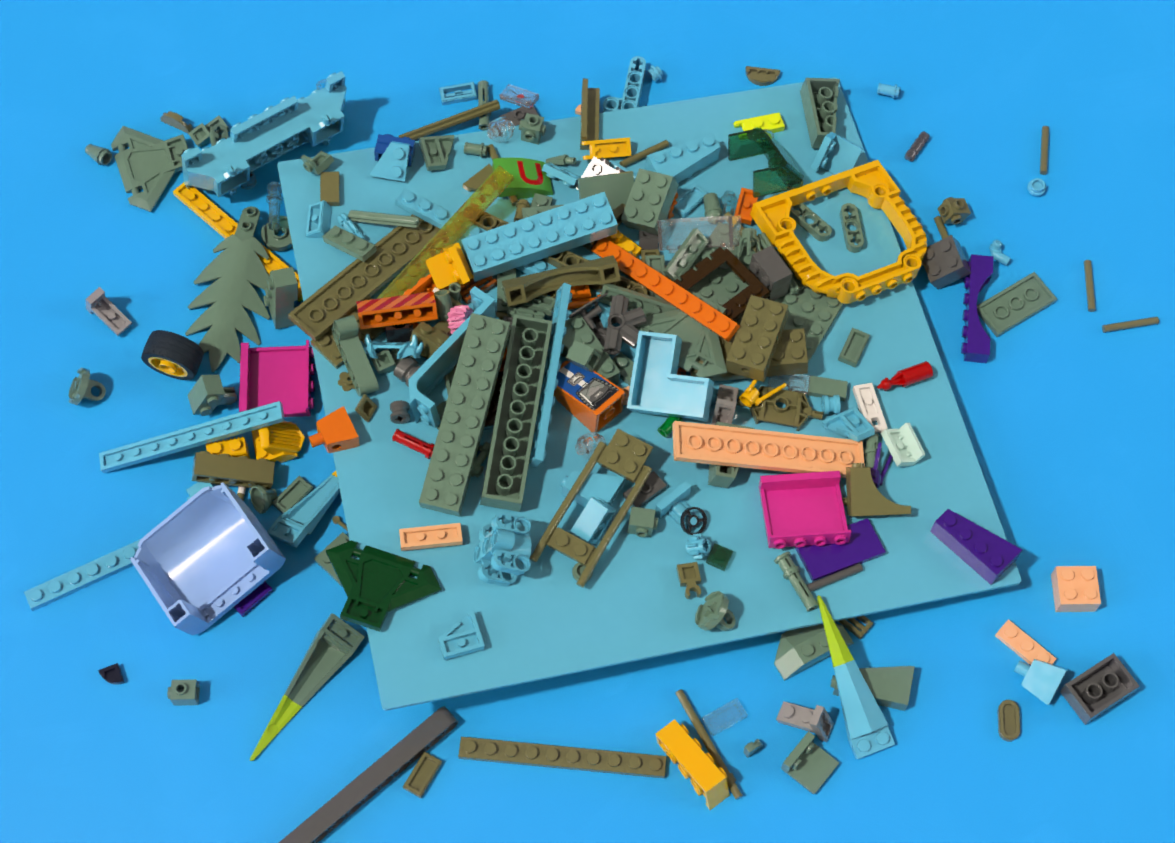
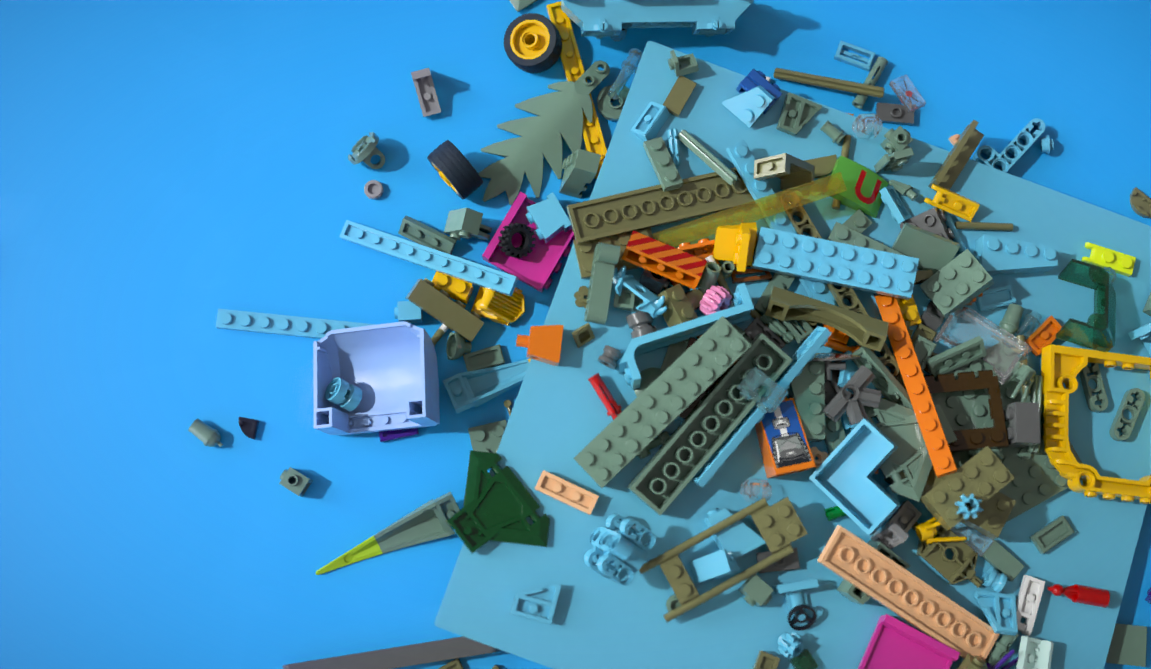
camera: 30 degrees right, 15 degrees up
(77, 702) = (205, 433): none -> sand green piece
(108, 417) = (373, 189): none -> light grey tile
(170, 424) = (426, 235): none -> sand green plate
(179, 224) = (533, 43): none -> wheel
(184, 588) = (343, 393): none -> medium azure wheel
(257, 390) = (527, 239): none -> black tyre
(279, 350) = (548, 218): none -> medium azure hips
(451, 190) = (786, 167): none -> olive panel
(522, 203) = (839, 216): olive pin -> none
(539, 141) = (894, 161): none -> sand green plate
(550, 349) = (773, 392): none -> clear light blue brick
(583, 356) = (799, 407): sand green brick -> none
(765, 343) = (964, 509): none -> medium azure gear
(974, 402) = (1128, 645): none -> sand green tile

